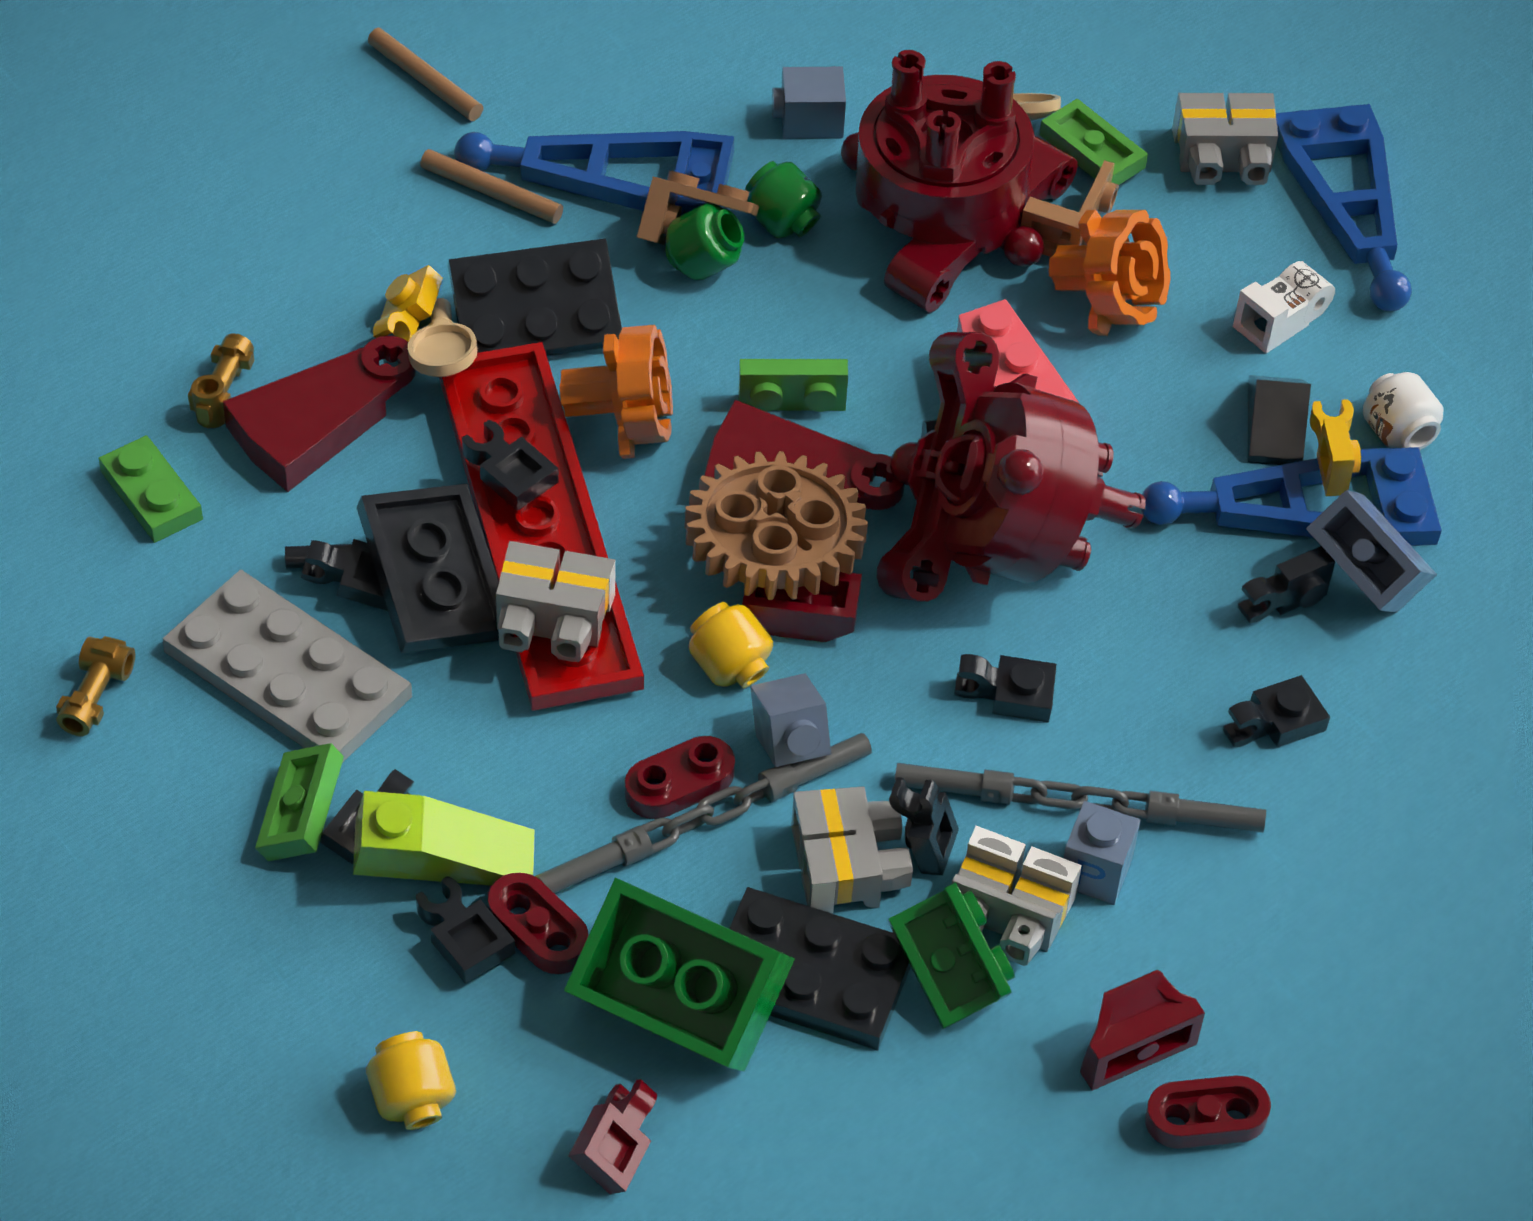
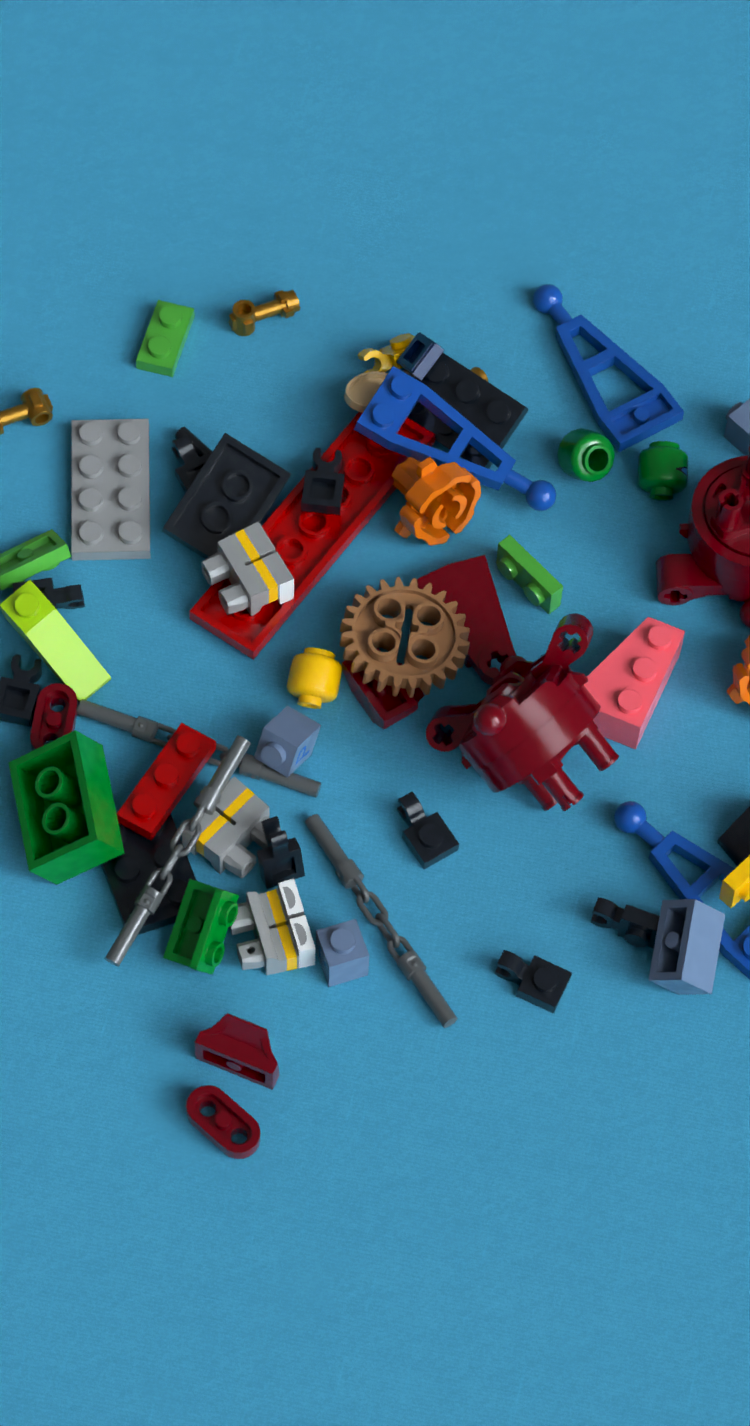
camera: 50 degrees right, 10 degrees up
(317, 412) = (285, 370): dark red piece -> none
(425, 74) = (582, 232): medium nougat bar -> none
(448, 277) = (420, 356): none -> dark blue tile
(491, 186) = (532, 326): medium nougat bar -> none
(497, 353) = (393, 405): none -> blue plate
(663, 194) = (600, 414): medium nougat bracket -> none
(682, 776) = (211, 717): dark red plate -> none
(732, 861) = (166, 781): none -> red plate
(870, 975) = (149, 897): none -> dark grey piece

